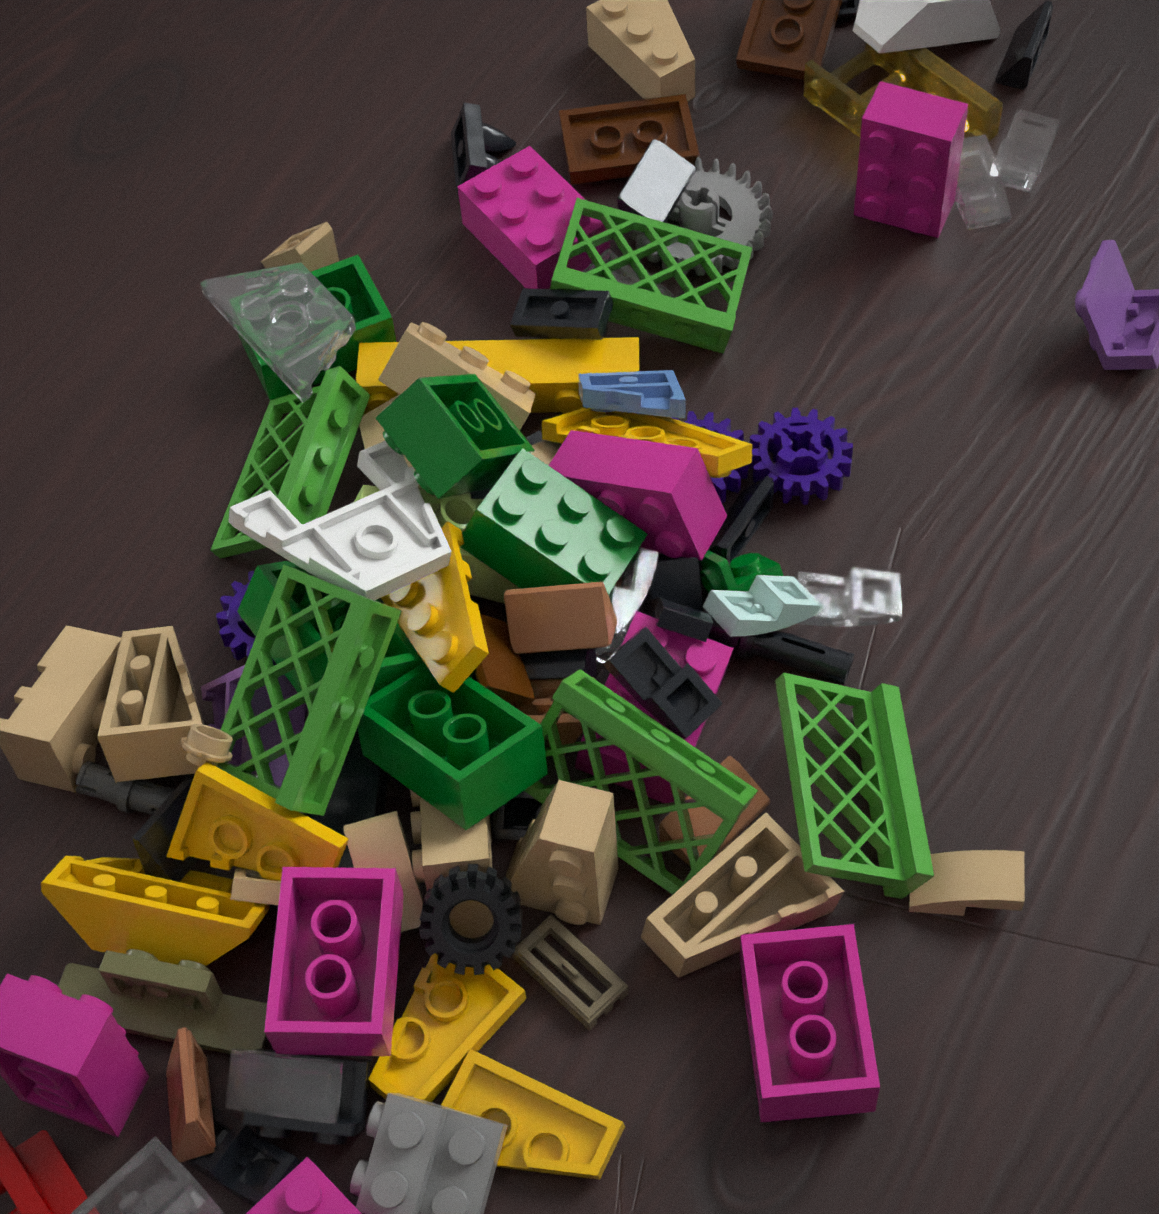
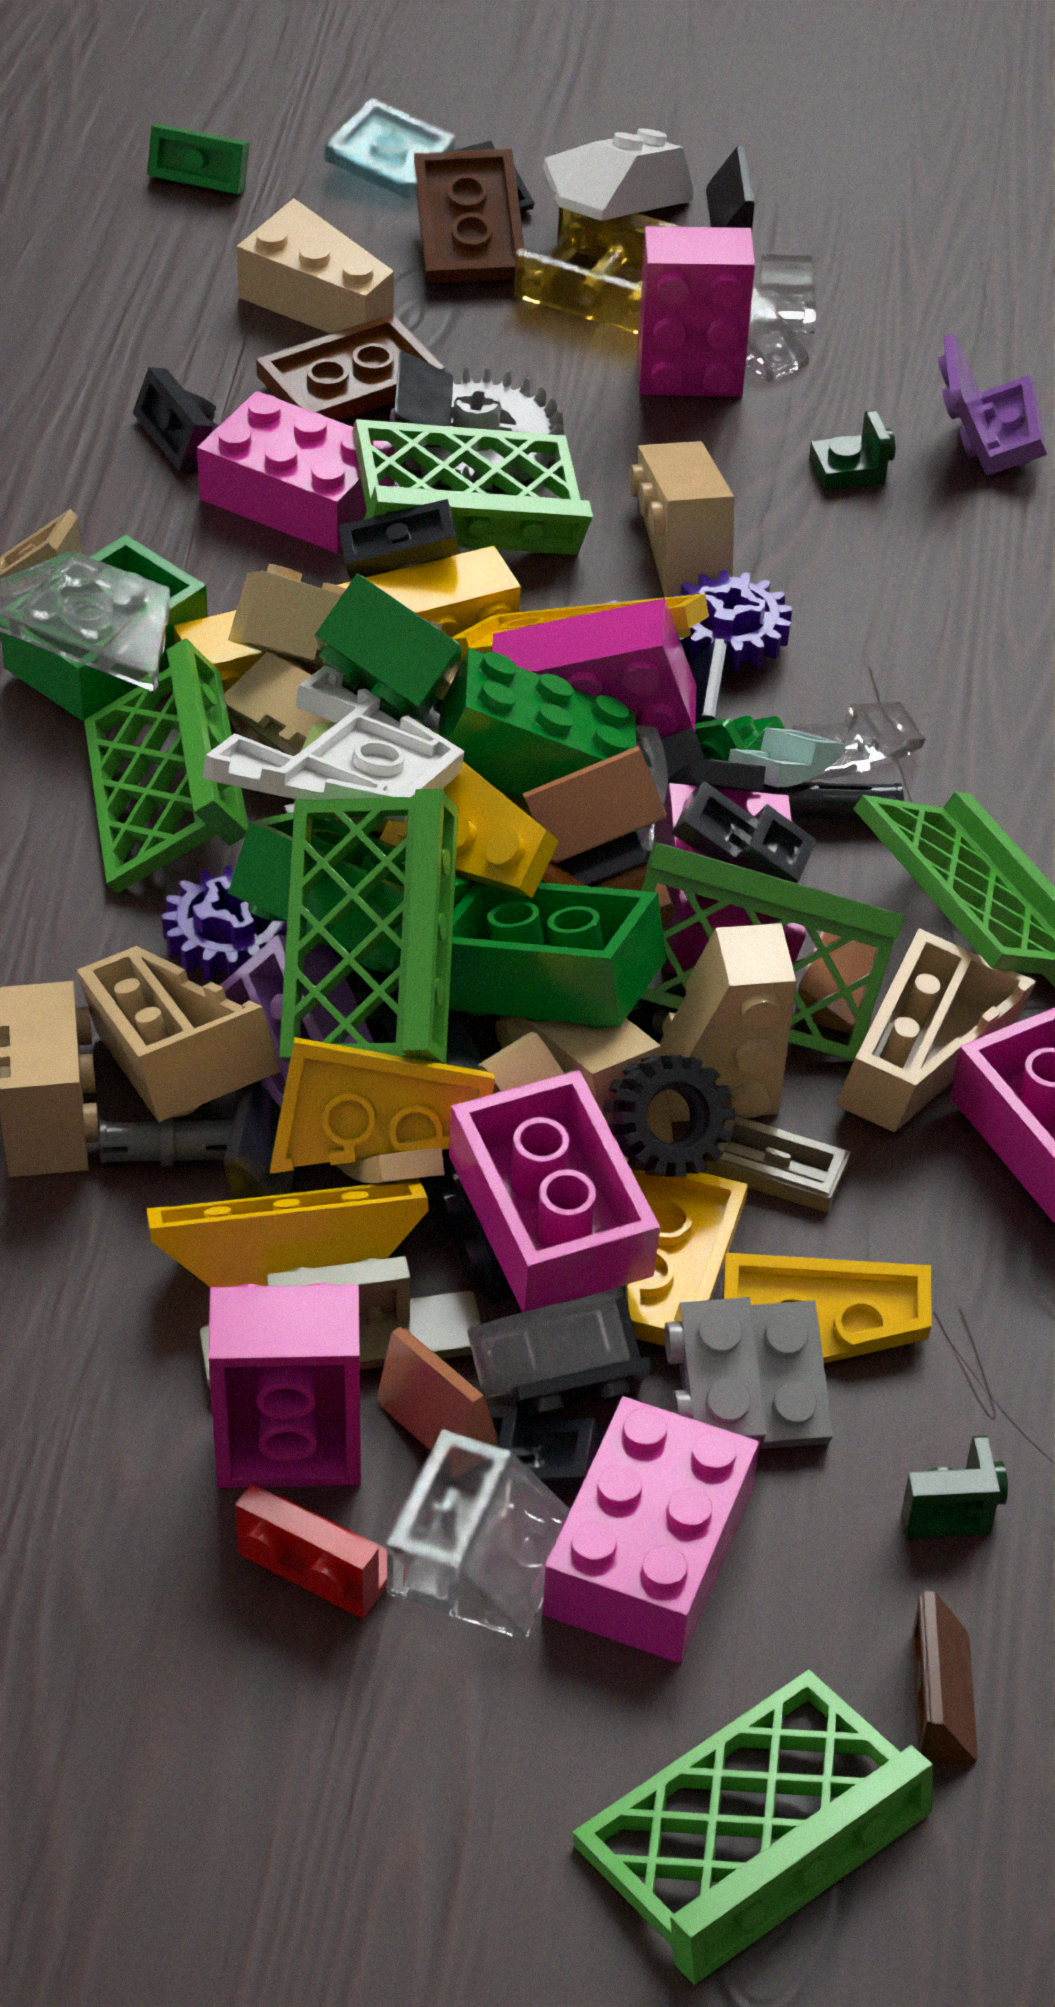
camera: 30 degrees left, 10 degrees down
(207, 745) = (281, 1024): tan plate -> none
(633, 392) = (533, 589): medium blue wing -> none
(811, 344) = (684, 512): none -> tan wedge
(992, 325) = (854, 459): none -> dark green bracket

